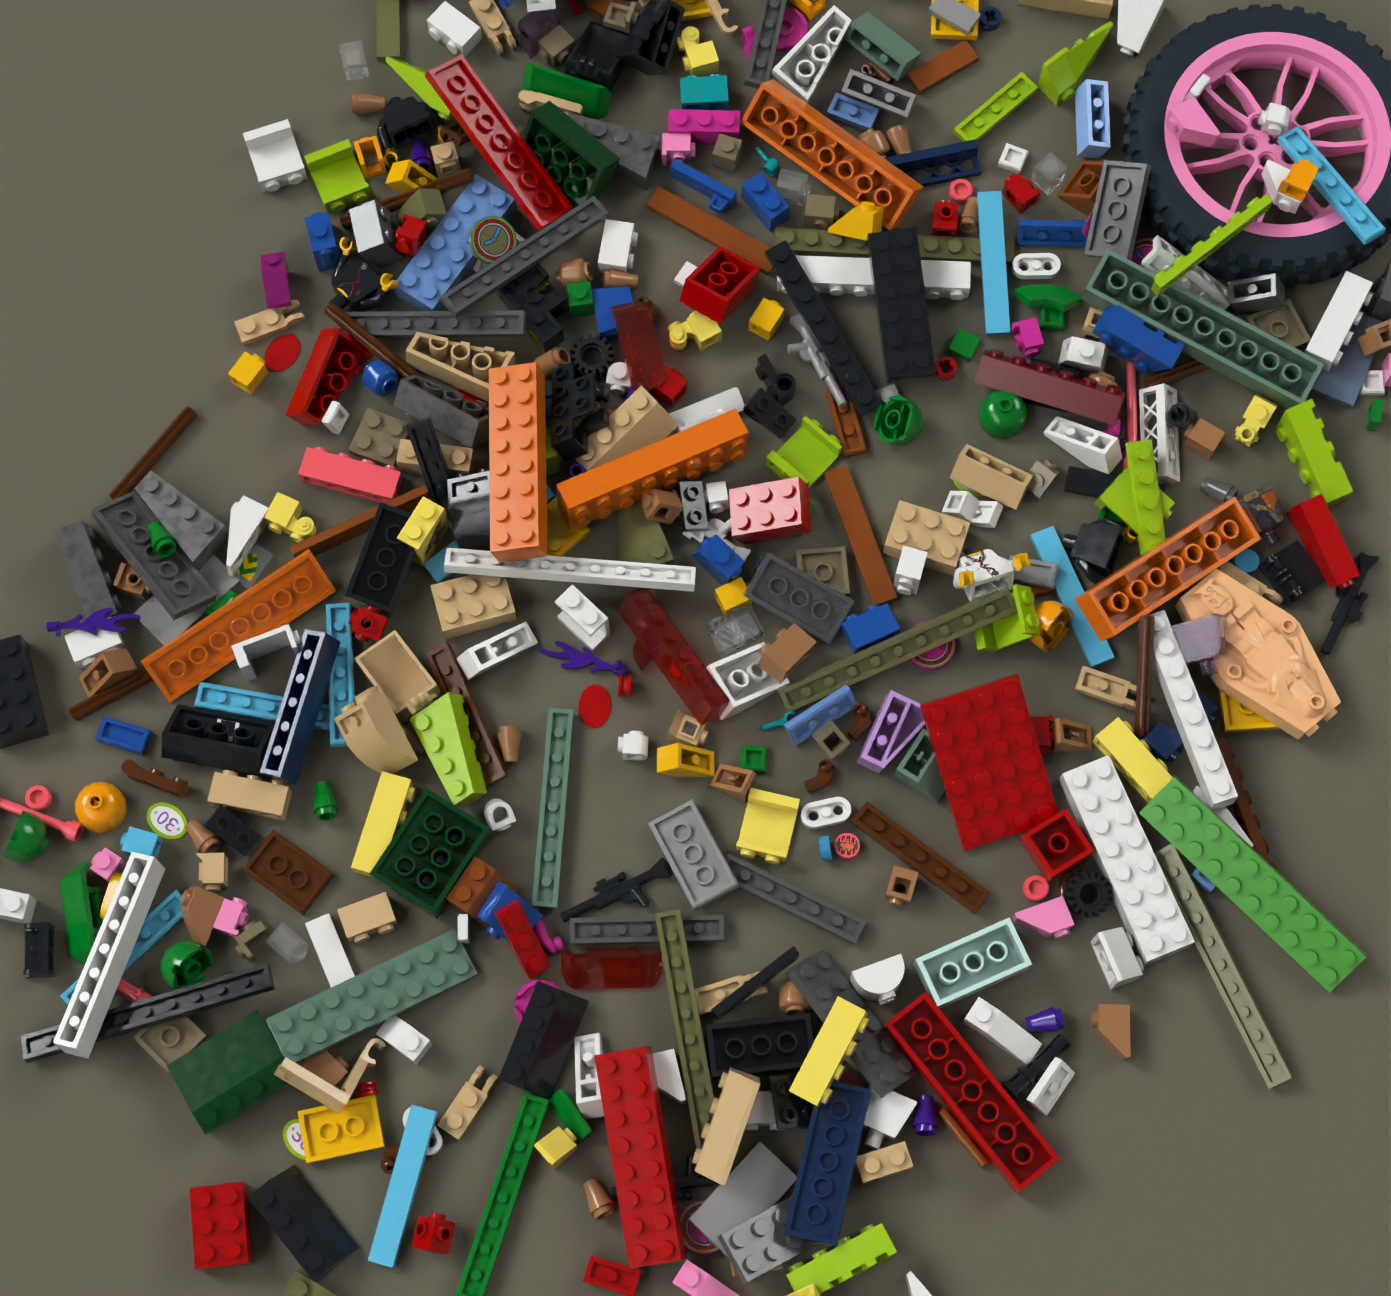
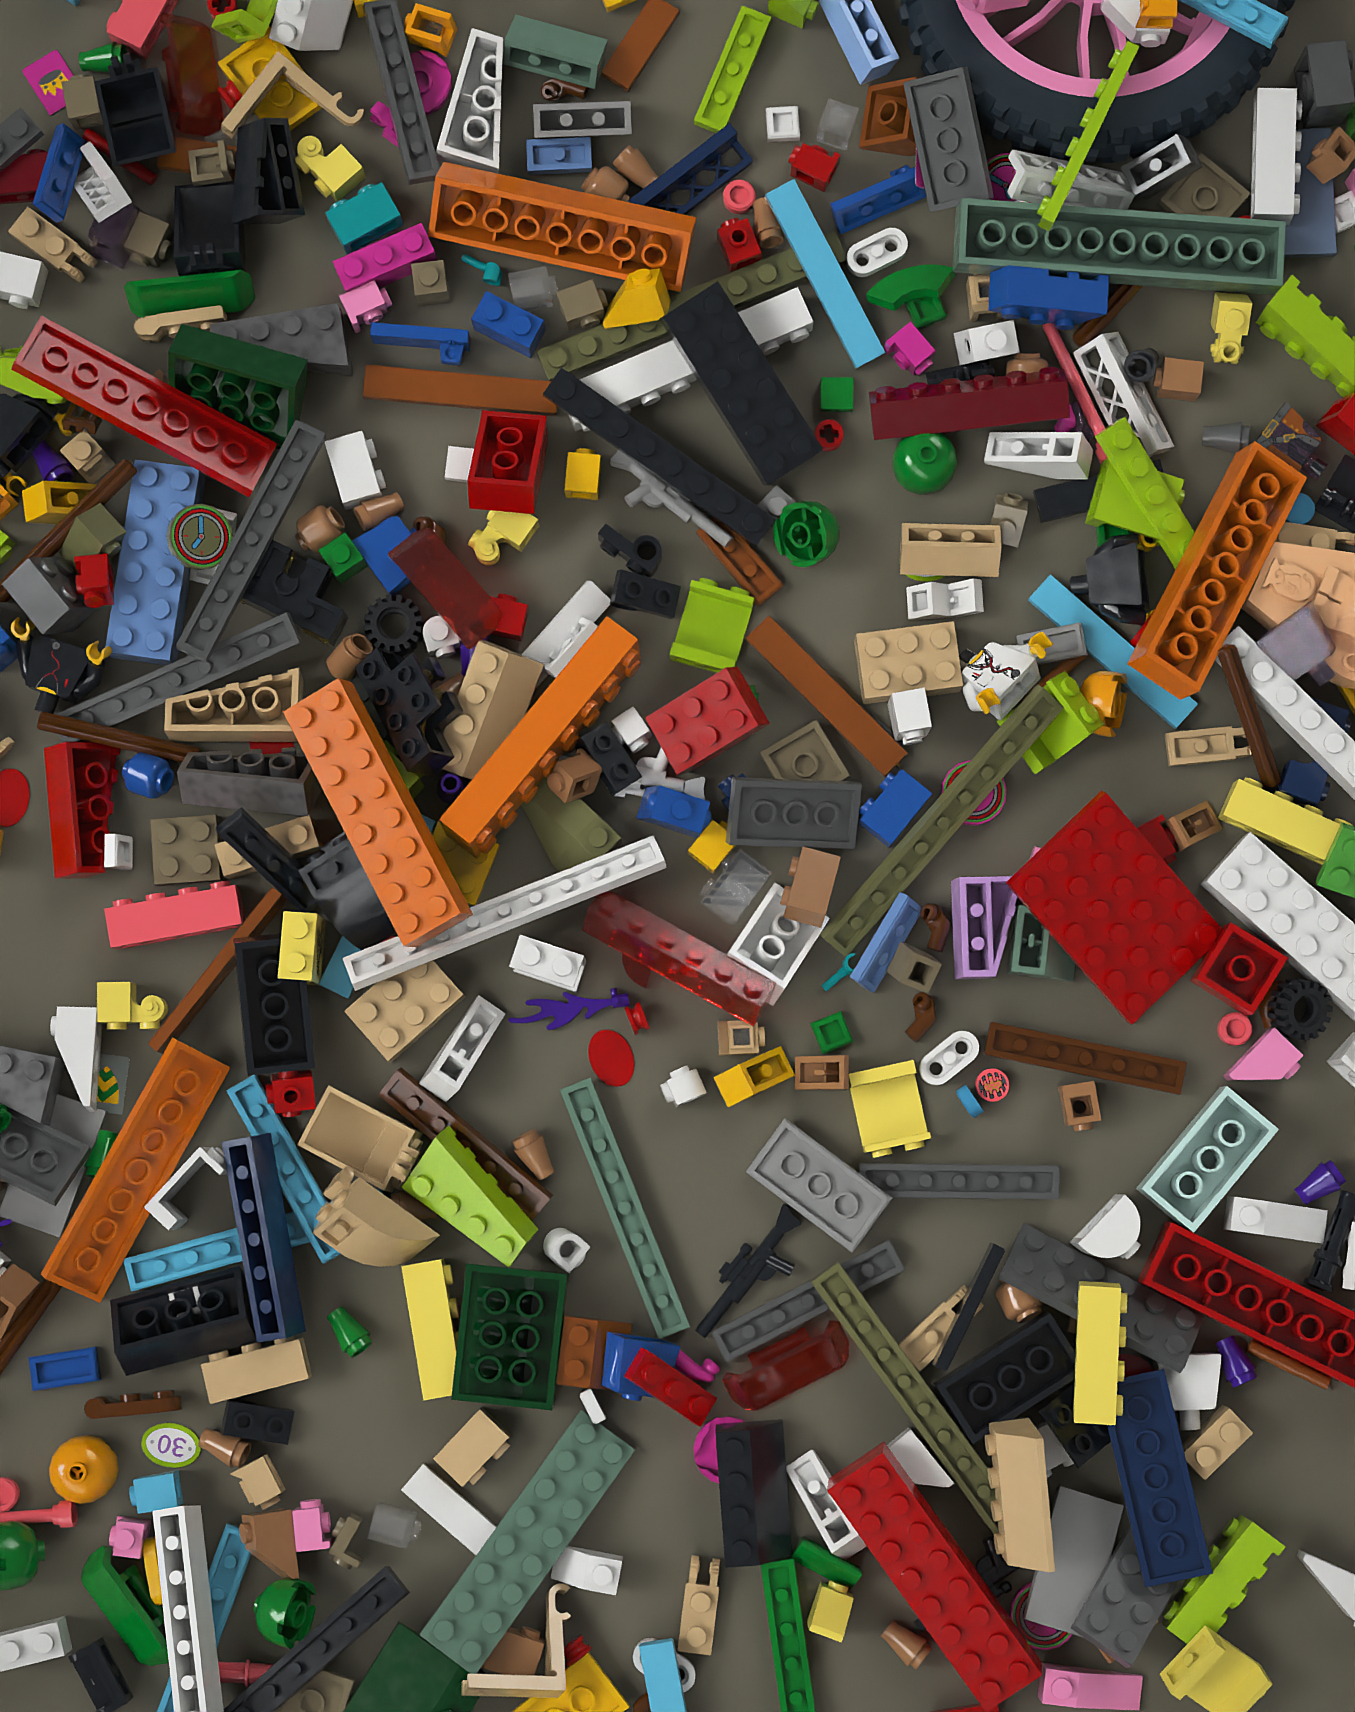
camera: 25 degrees left, 10 degrees up
(288, 872) = (348, 1437): reddish brown tile -> none

